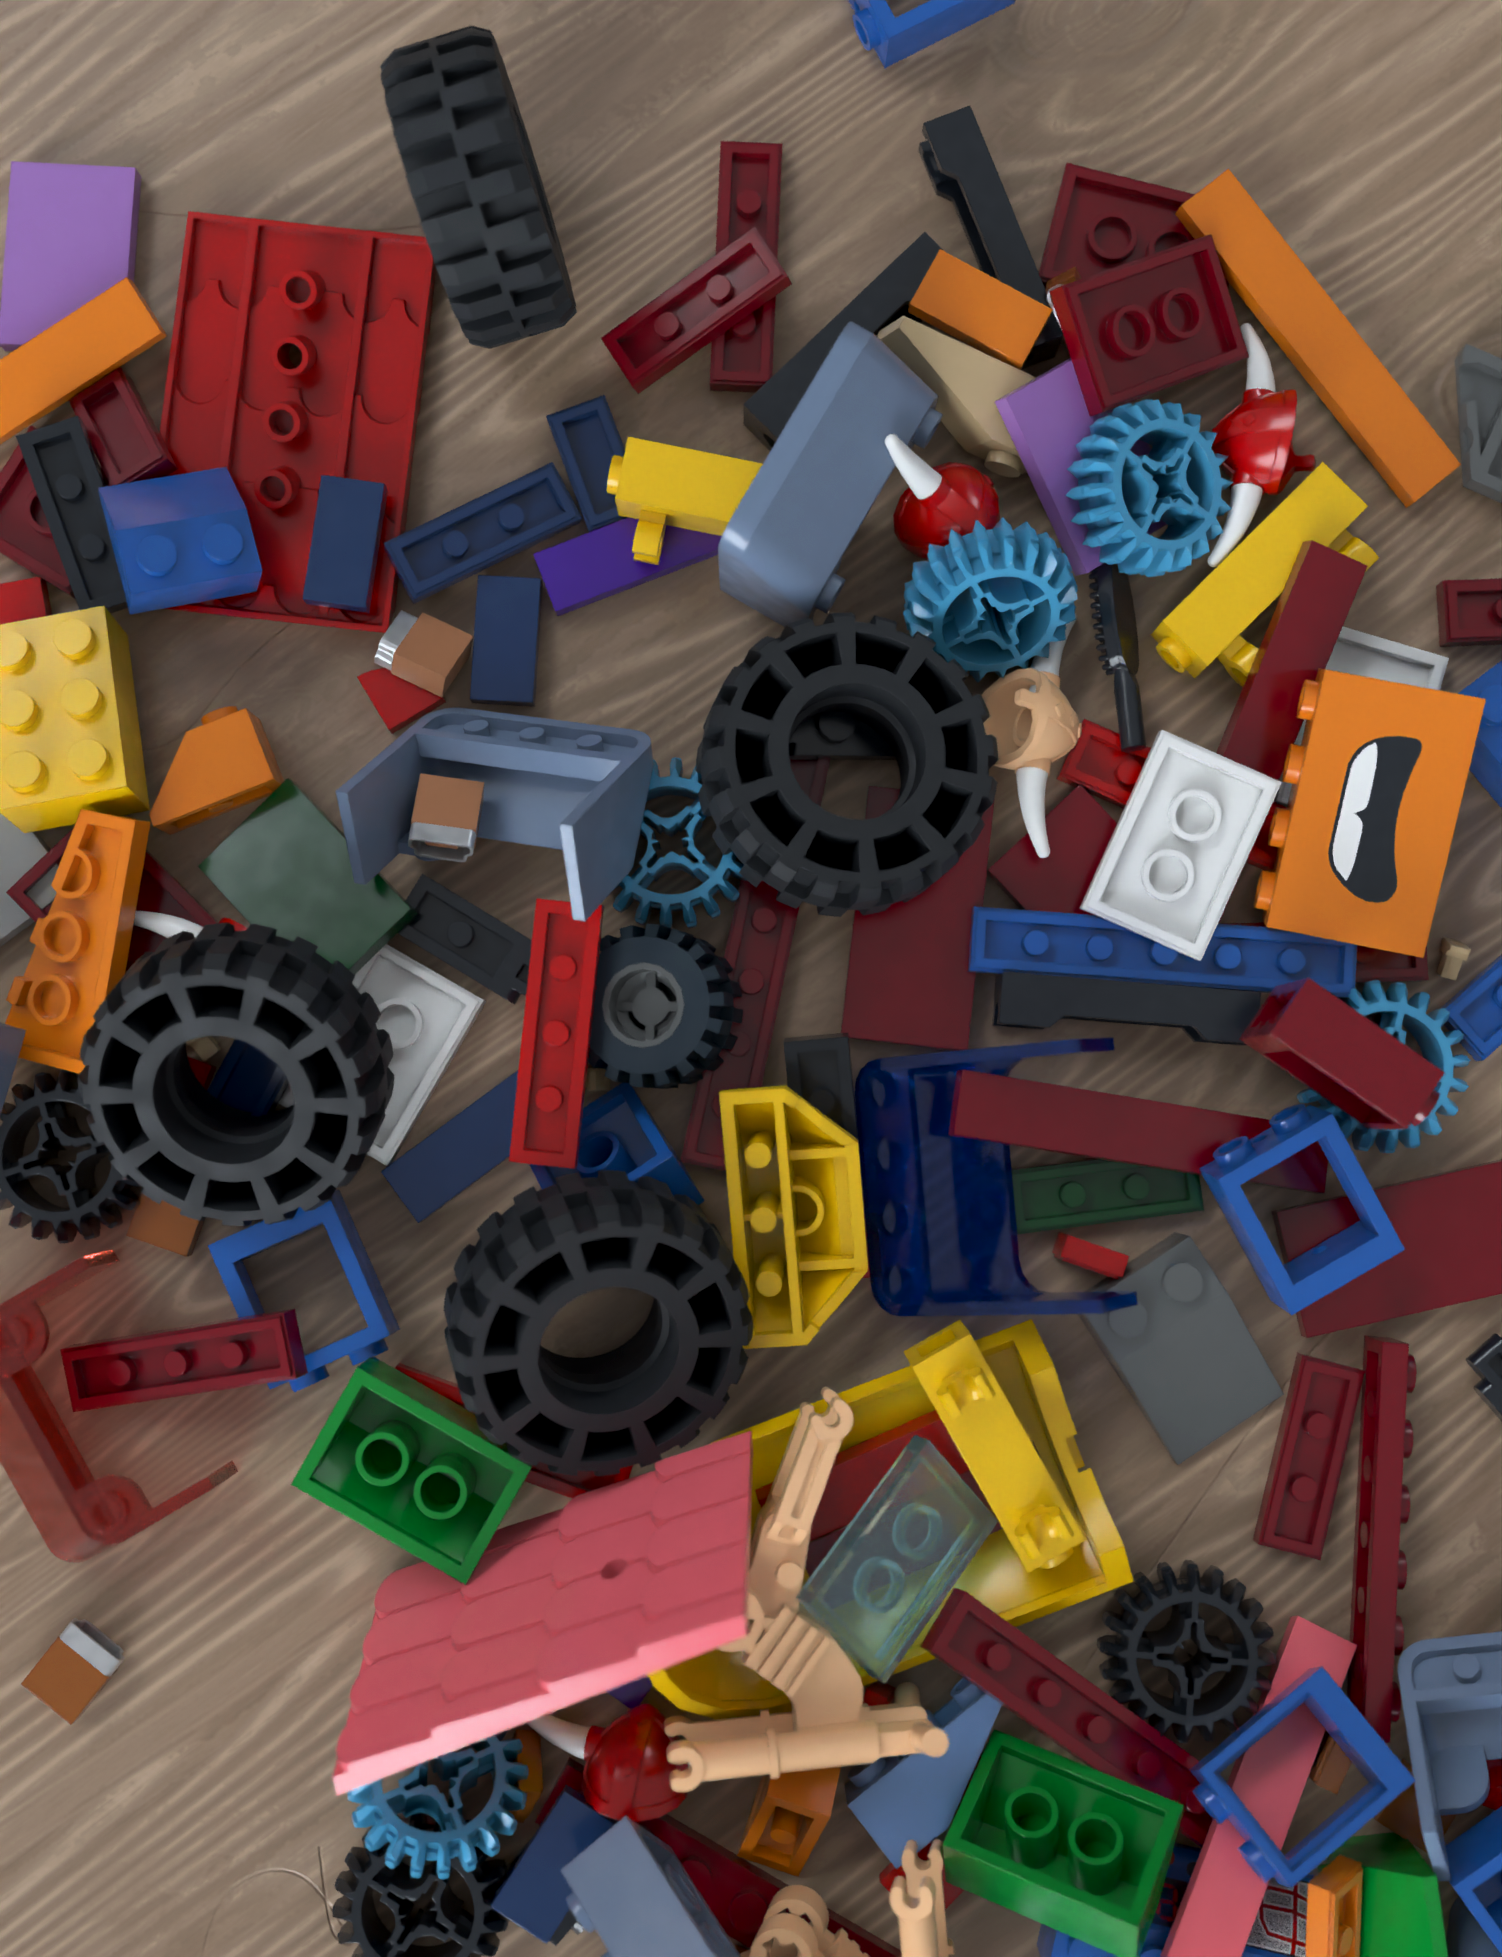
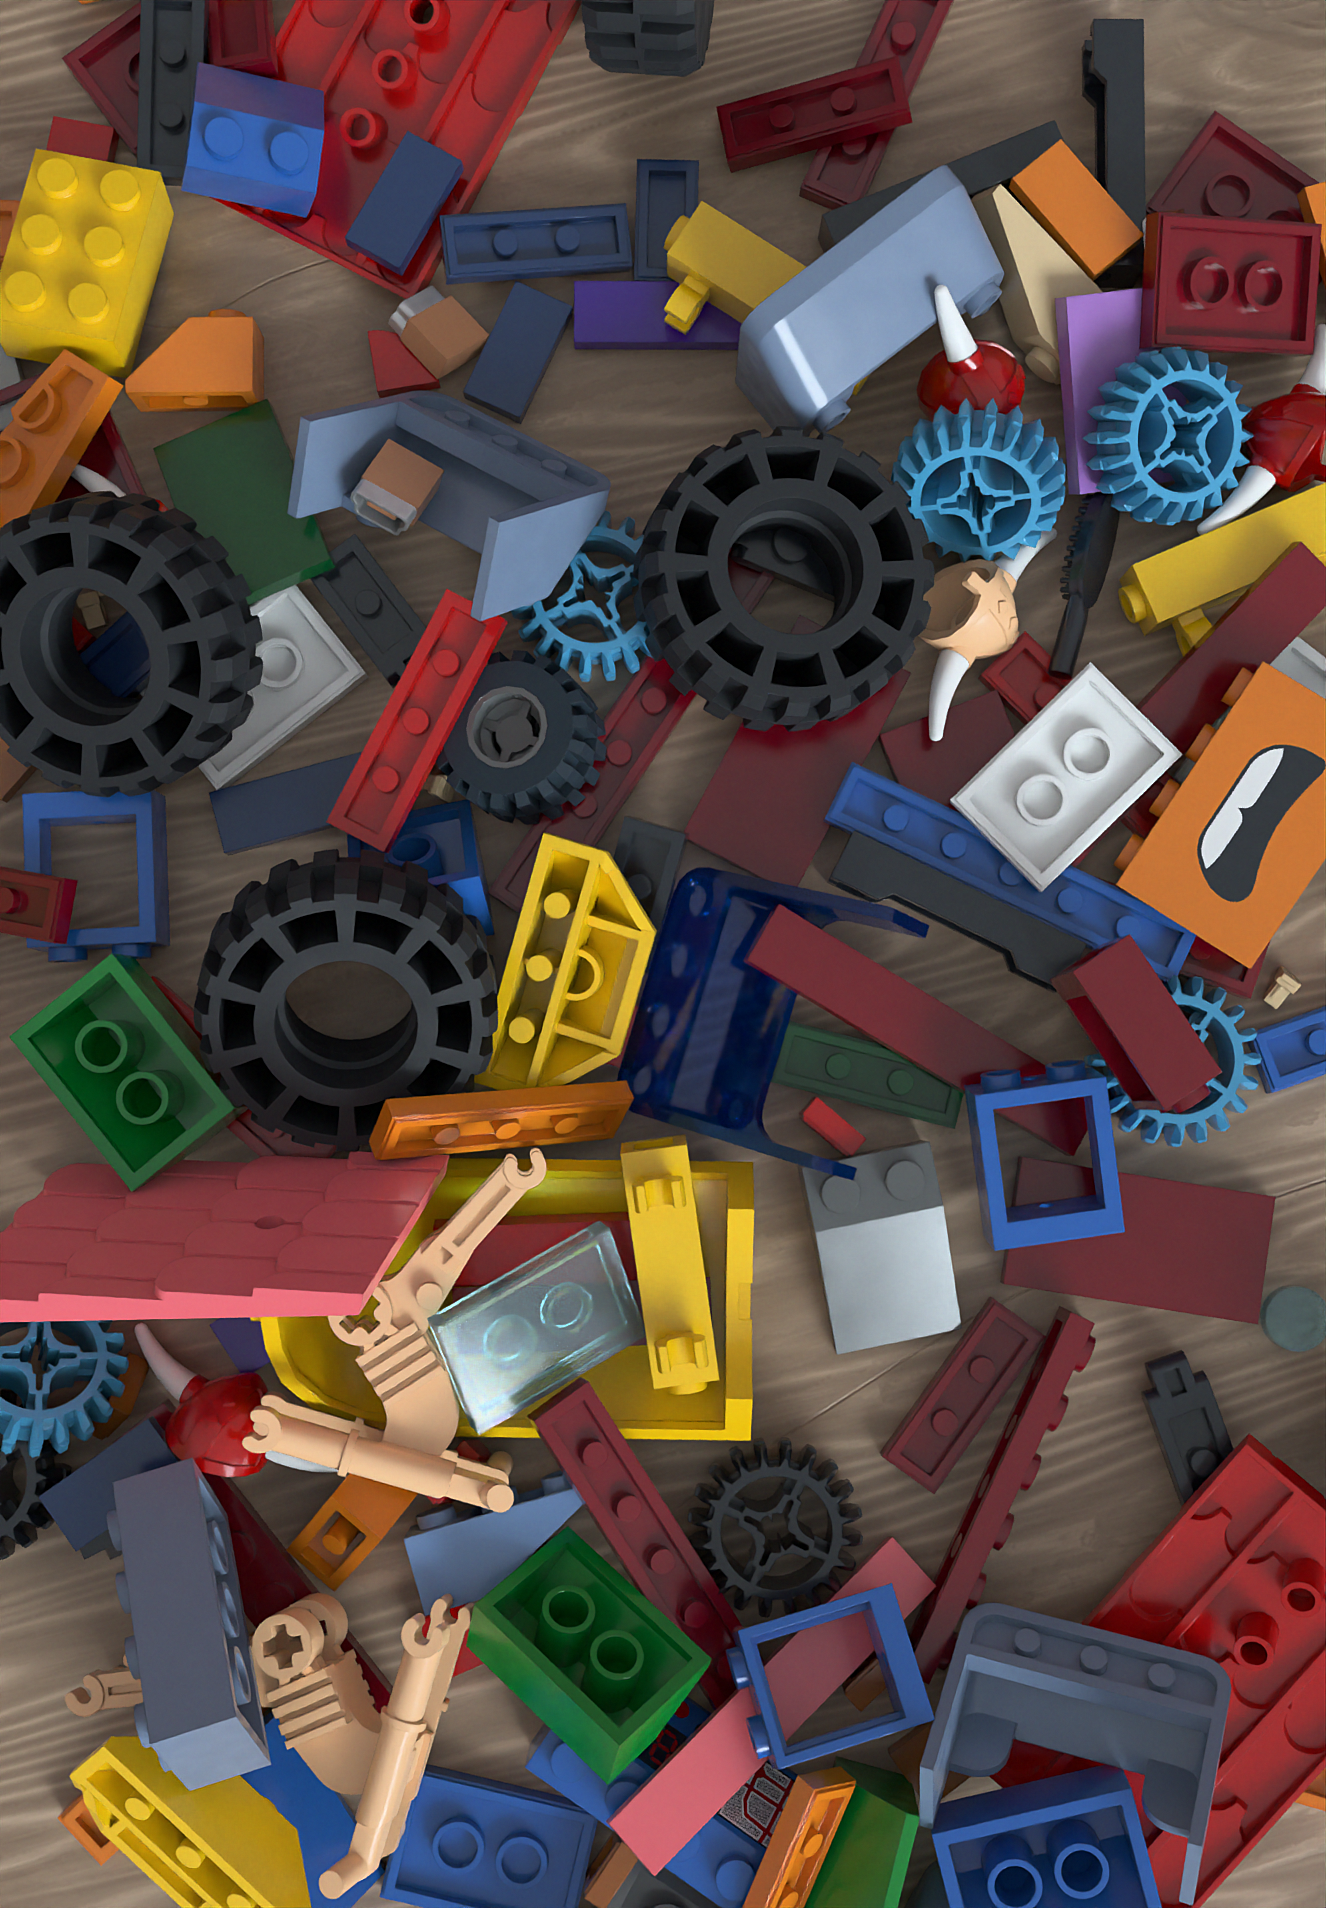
camera: 25 degrees right, 0 degrees up
(782, 1377) = (499, 1119): none -> orange tile

